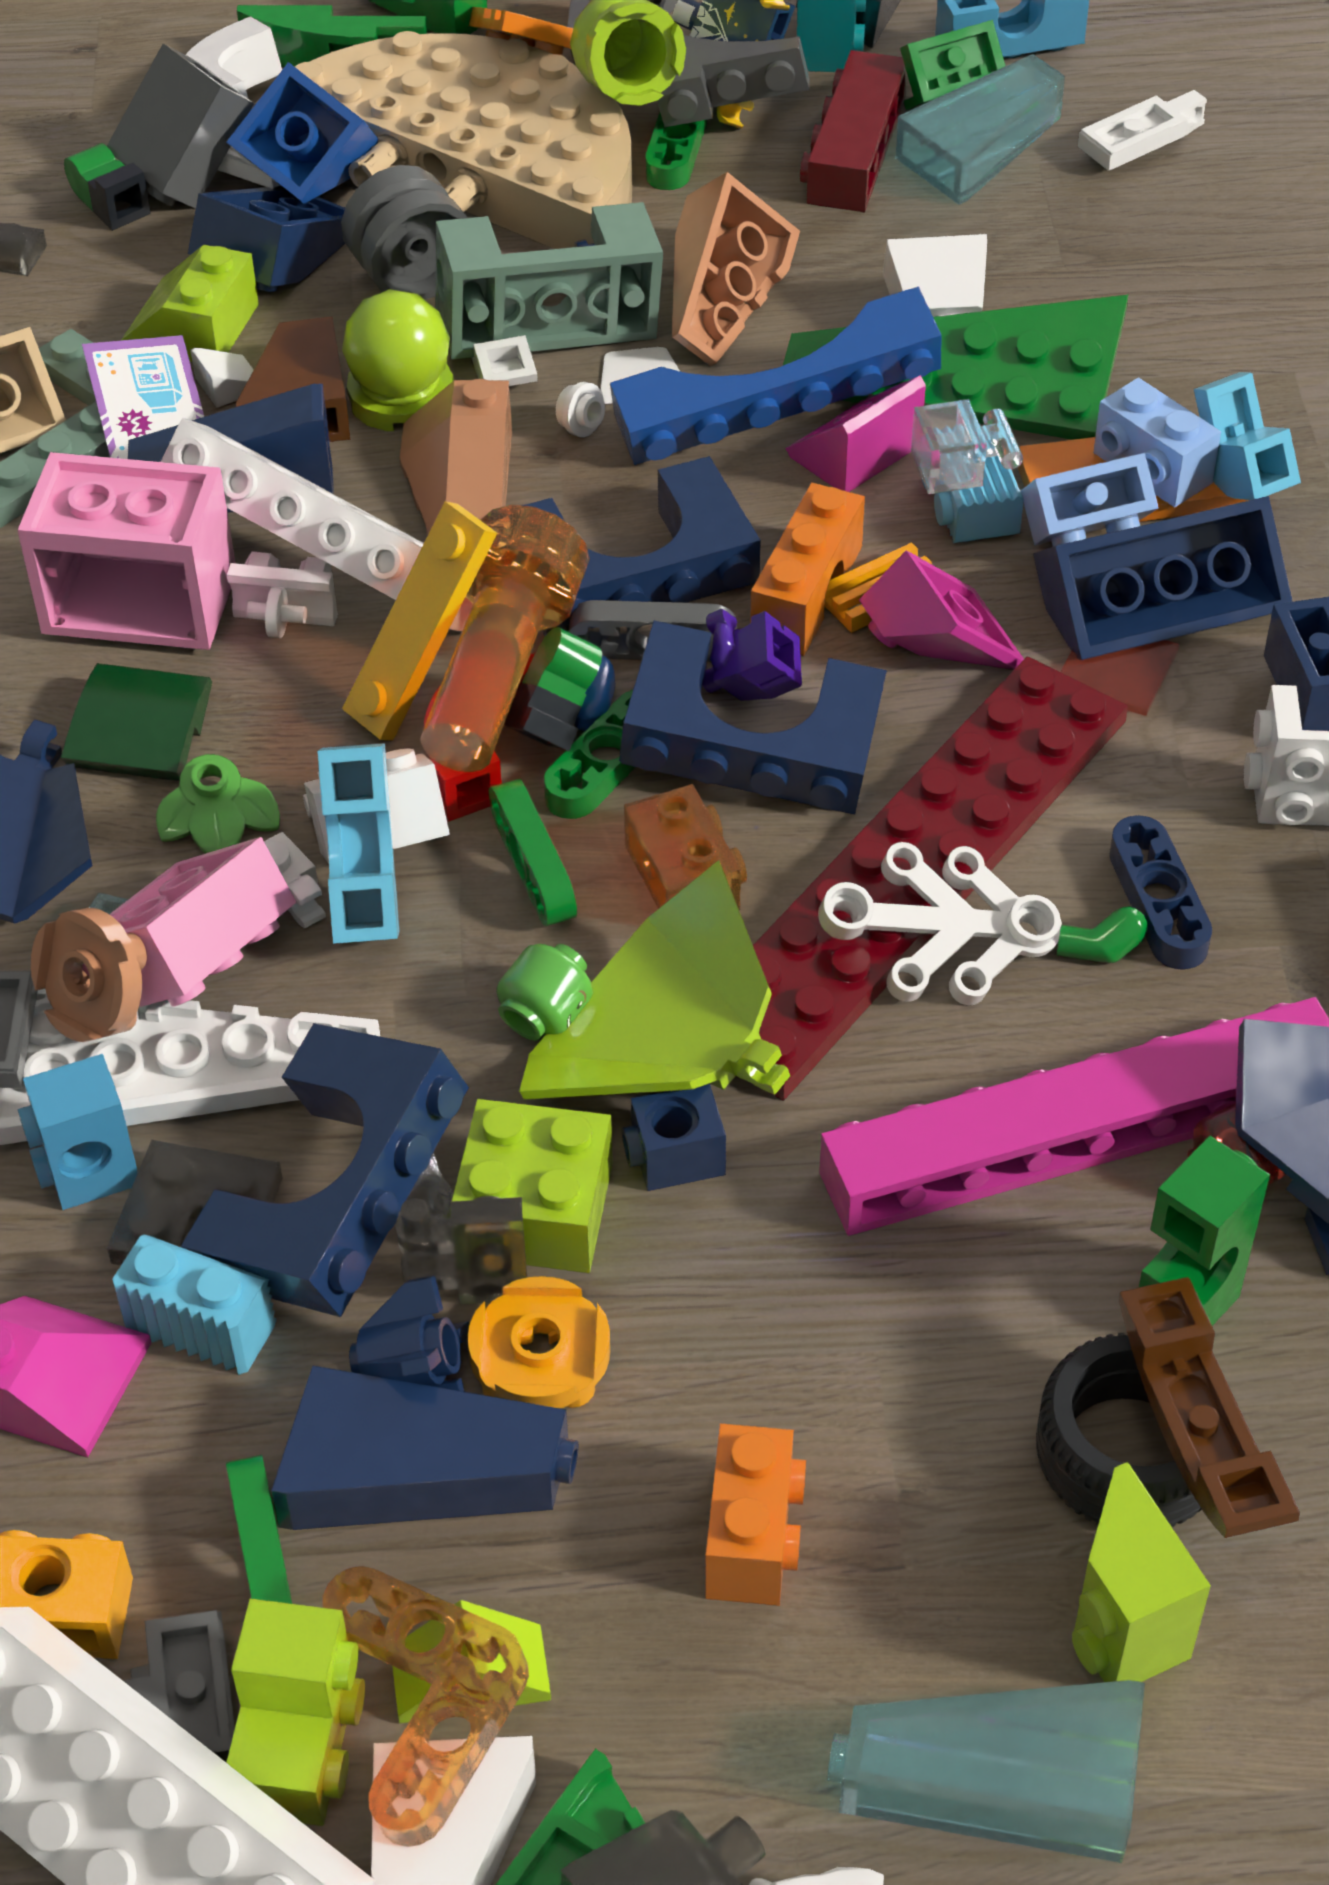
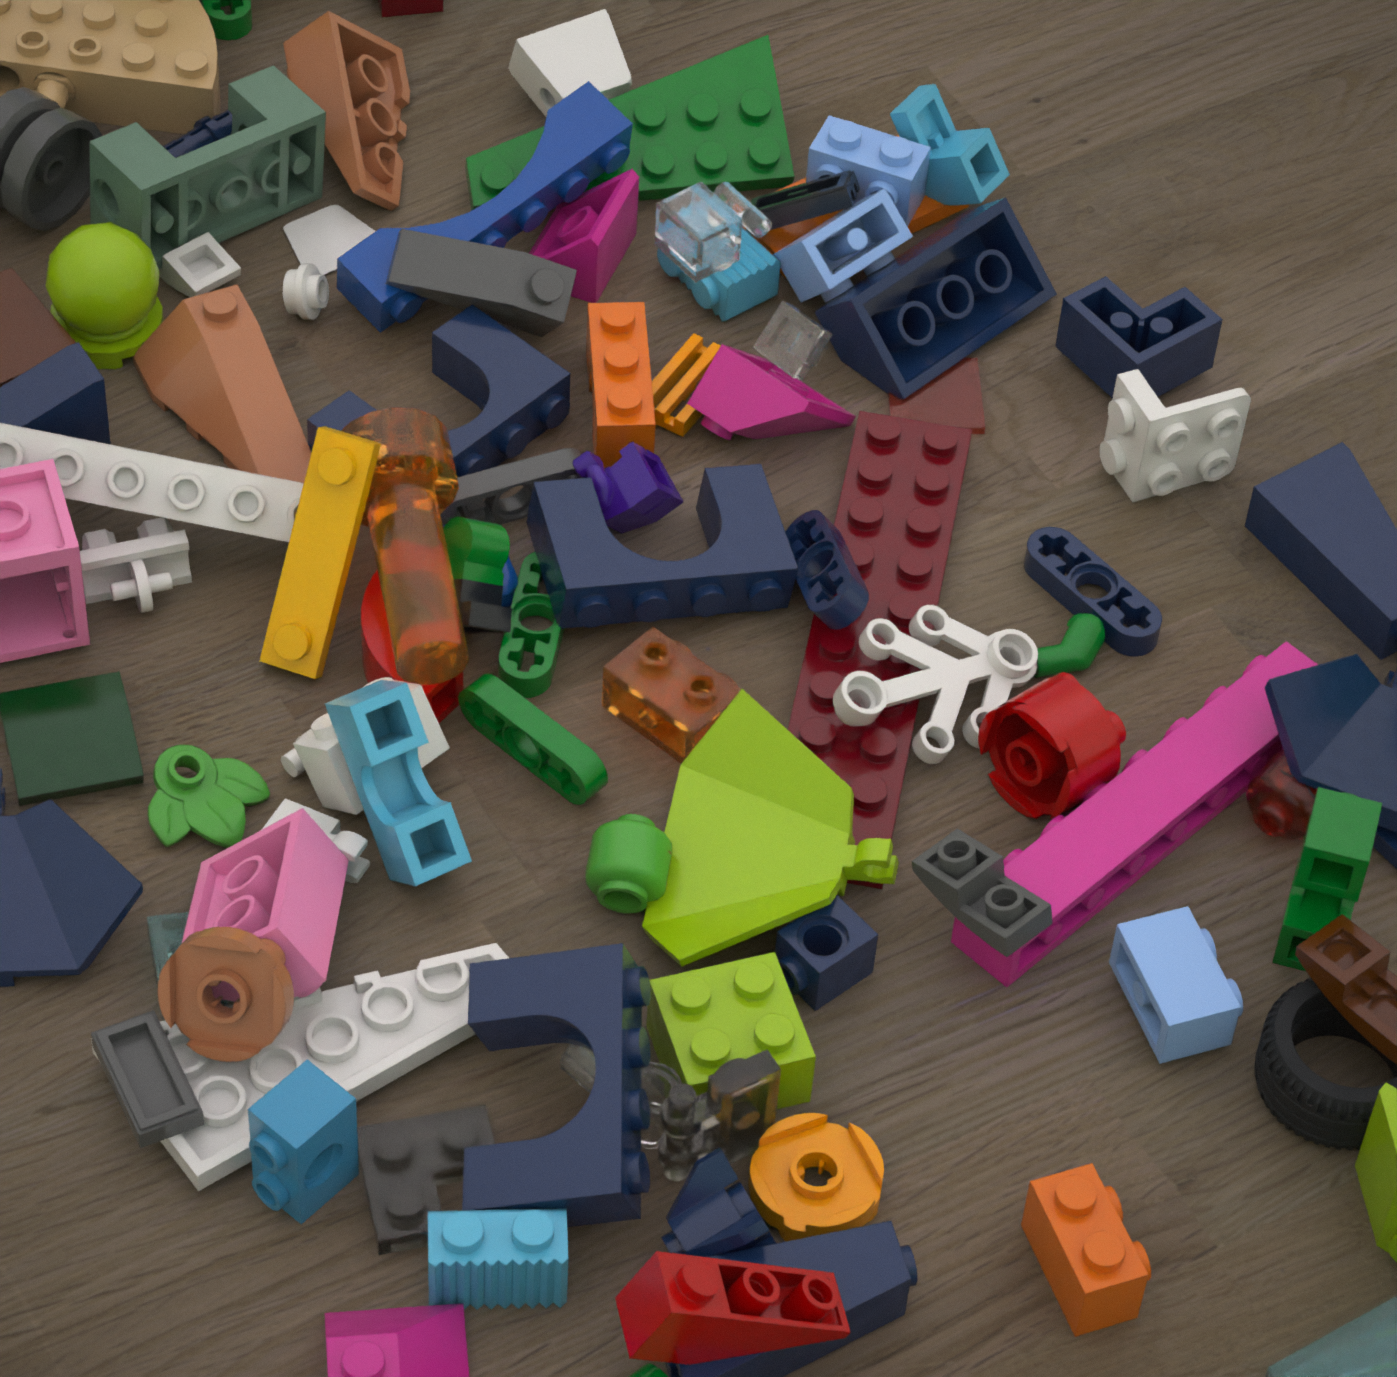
camera: 30 degrees left, 0 degrees up
(345, 1430) = (725, 1309): none -> red slope
(736, 438) = (497, 280): none -> dark grey slope
(845, 1130) = (975, 890): none -> dark grey slope
(893, 786) = (826, 570): none -> dark blue beam
(998, 575) = (793, 341): none -> clear tile
(1002, 1291) = (1175, 984): none -> light blue brick
(1011, 1016) = (1051, 746): none -> red brick
(1075, 449) = (808, 199): none -> black tile

